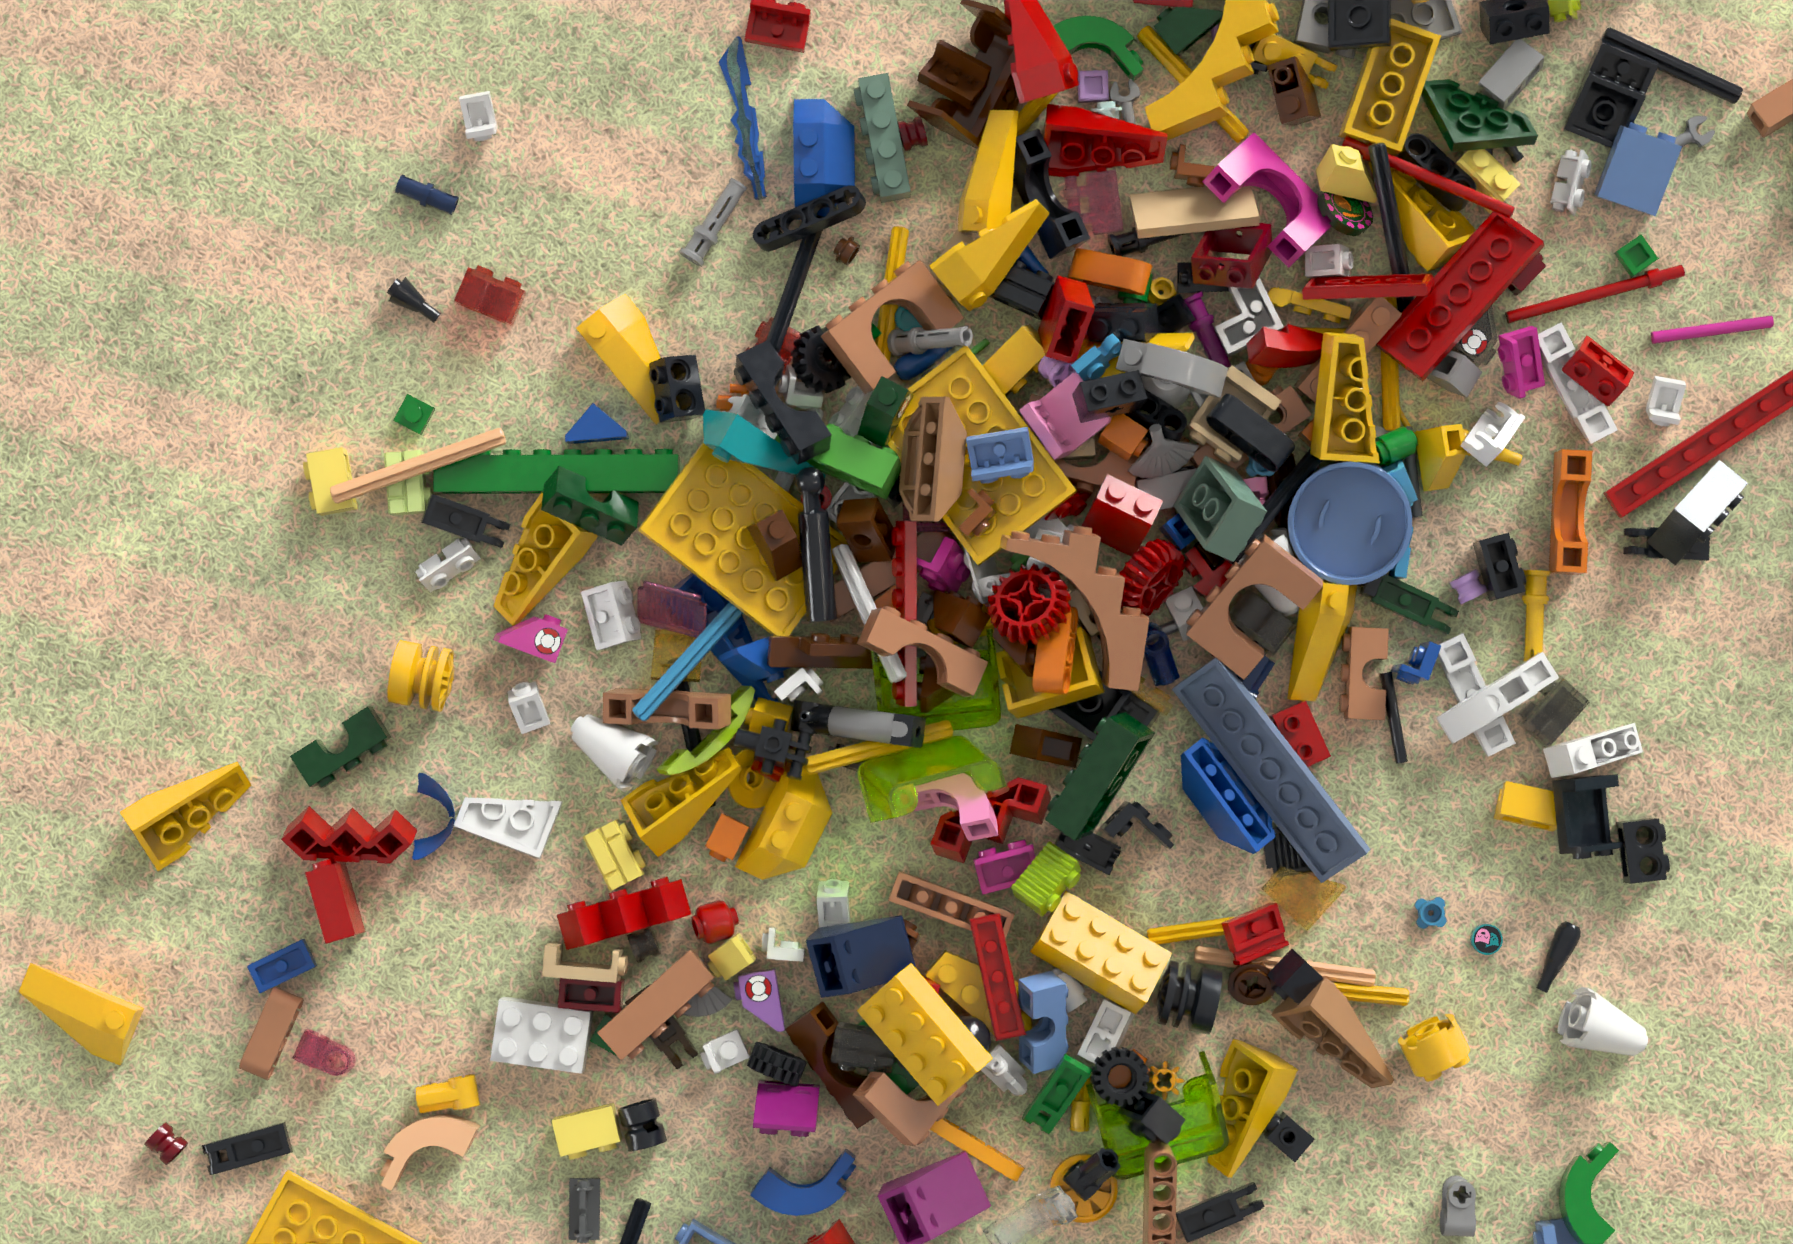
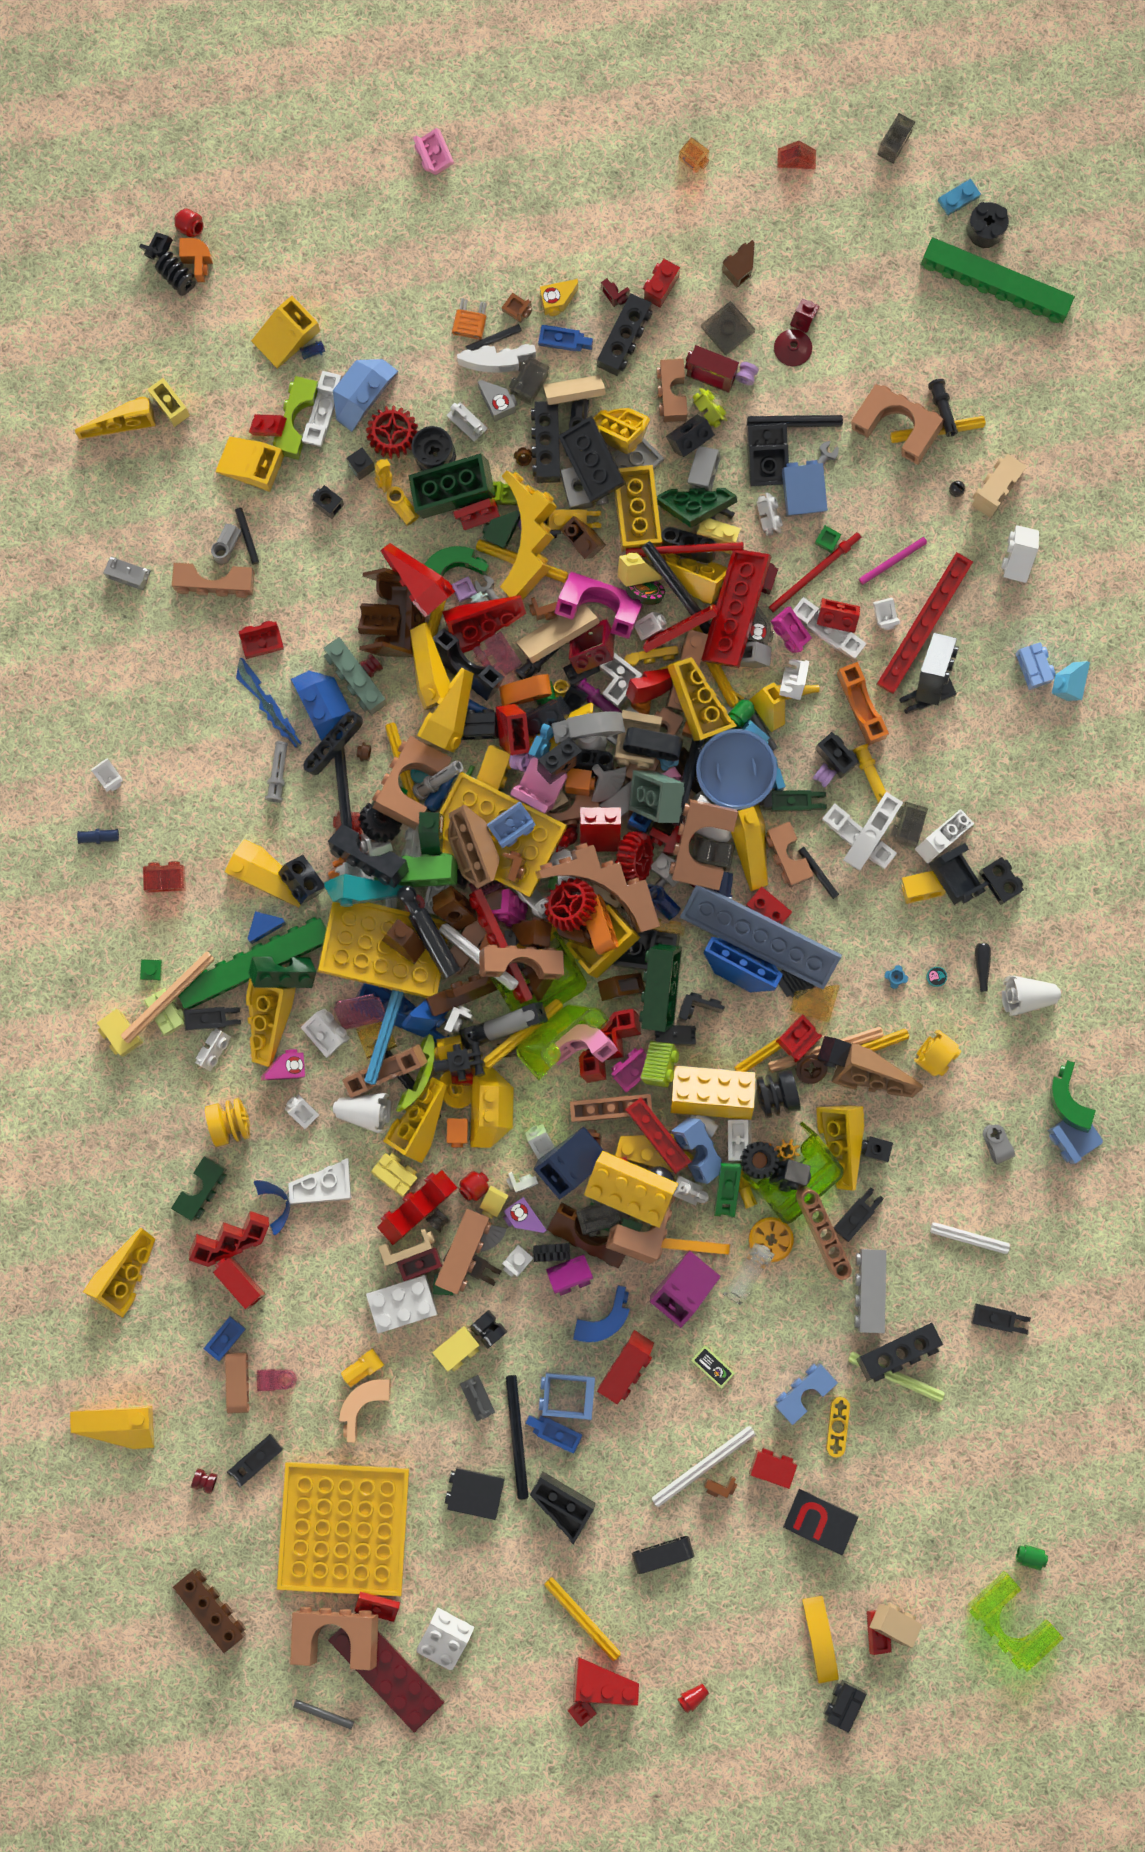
camera: 25 degrees left, 5 degrees down
(407, 296) = (114, 901): black cone -> none
(1088, 1175) = (770, 1228): black piece -> none
(1422, 664) = (817, 832): blue bracket -> none

